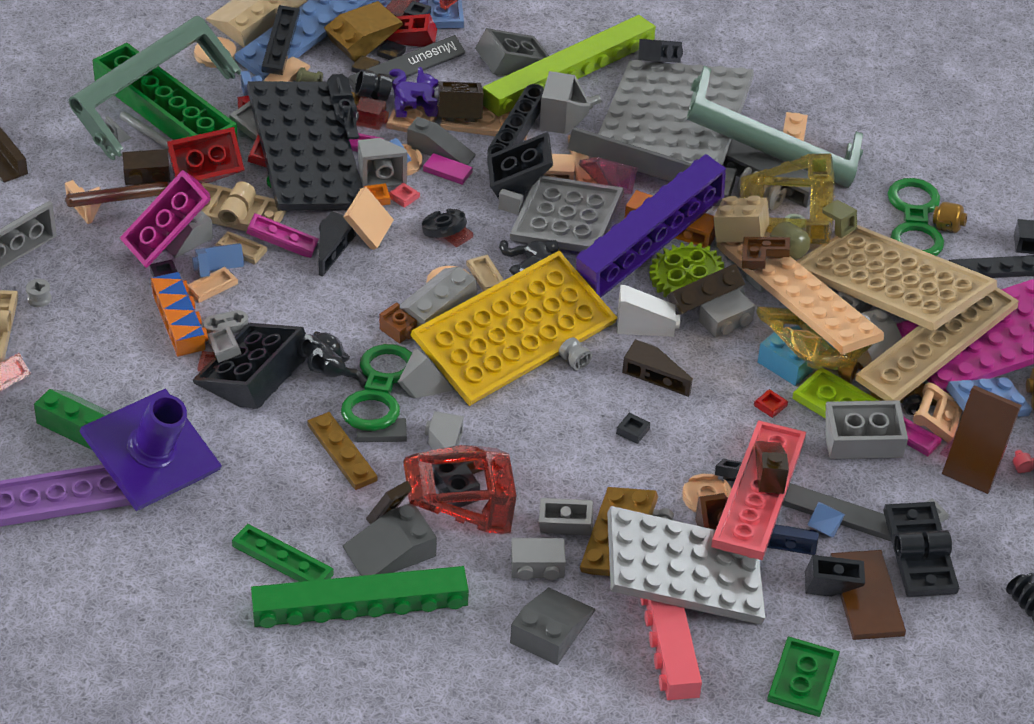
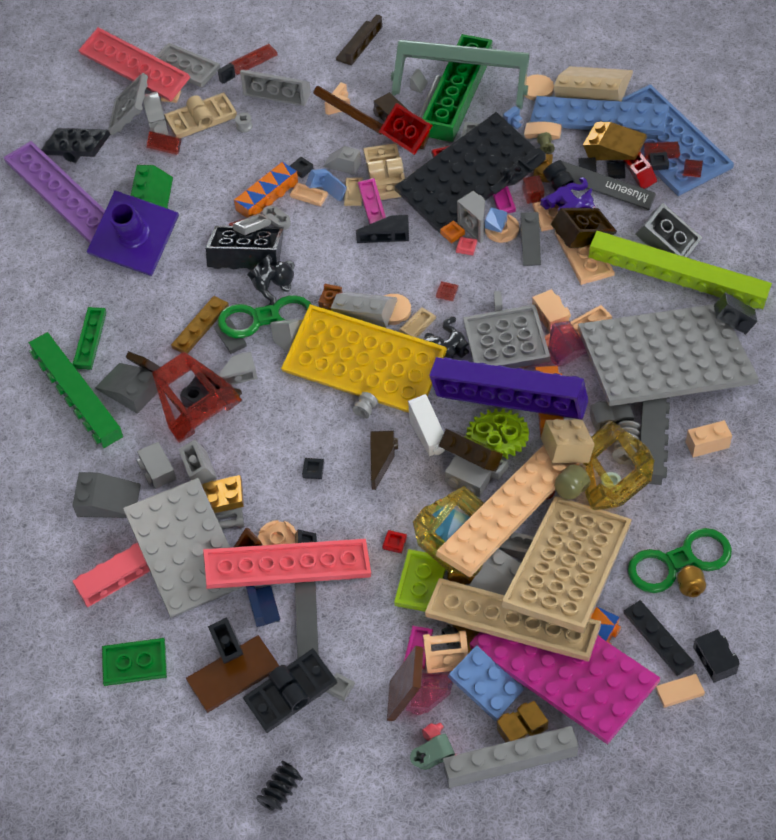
camera: 70 degrees right, 10 degrees up
(165, 218) = (329, 138): dark pink slope -> none
(280, 40) = (560, 107): black plate -> none
(368, 218) = (417, 236): light nougat tile -> none
(445, 224) = (448, 278): black tile -> none
(447, 169) = (511, 256): dark pink tile -> none
(519, 120) = (576, 270): black beam -> none
(520, 165) = (522, 286): black slope -> none
(564, 103) = (622, 282): light grey piece -> none
(627, 154) = (588, 348): dark grey tile -> none
(758, 248) = (535, 462): reddish brown plate -> none
(765, 137) = (668, 423): sand green piece -> none
(771, 467) = (305, 557): dark brown slope -> none
(826, 519) = (286, 618): medium blue slope -> none
(844, 217) = (620, 503): olive panel -> none
(865, 430) = (390, 607): light grey slope -> none

